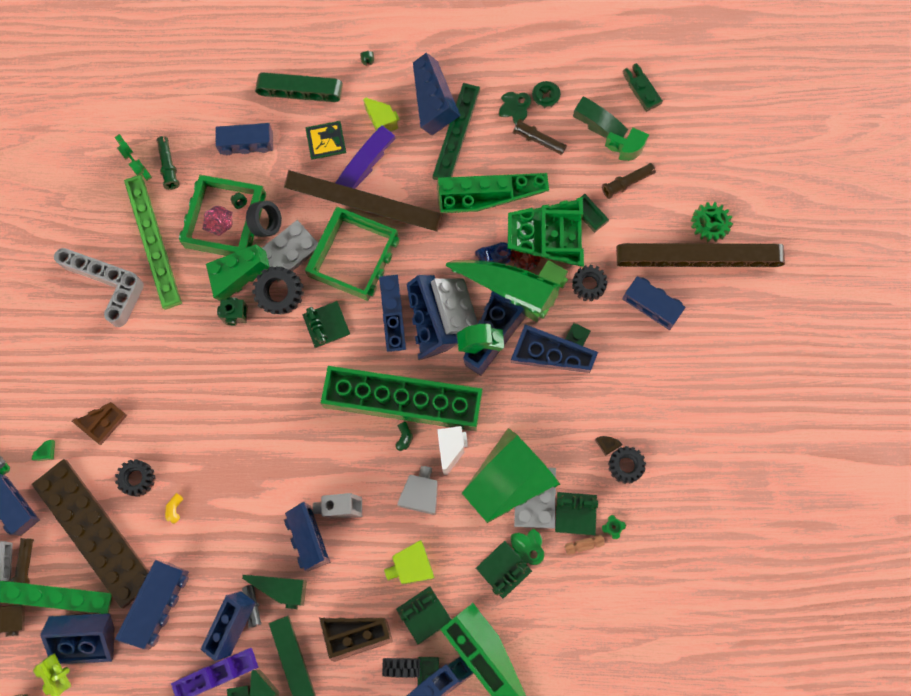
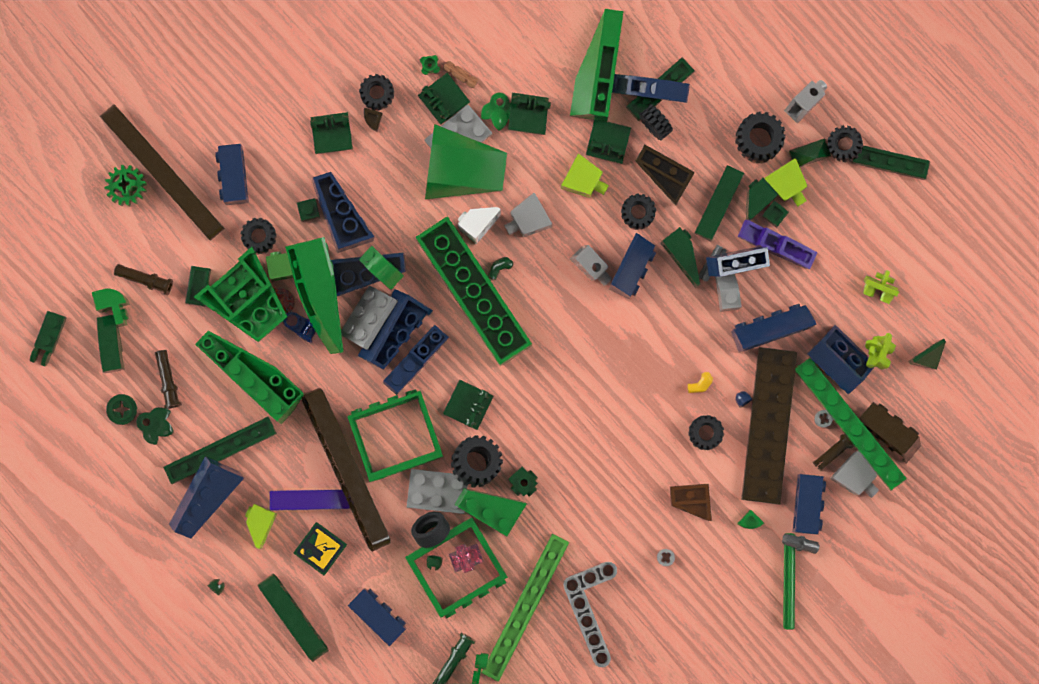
camera: 140 degrees left, 10 degrees up
(62, 579) = (818, 420): none -> light grey bush
(81, 360) = (659, 557): none -> light grey bush
(130, 530) = (742, 398): none -> dark blue hinge
(211, 593) = (728, 293): none -> light grey slope
(357, 590) = (638, 200): none -> black tyre
(623, 402) = (331, 133): none -> dark green hinge

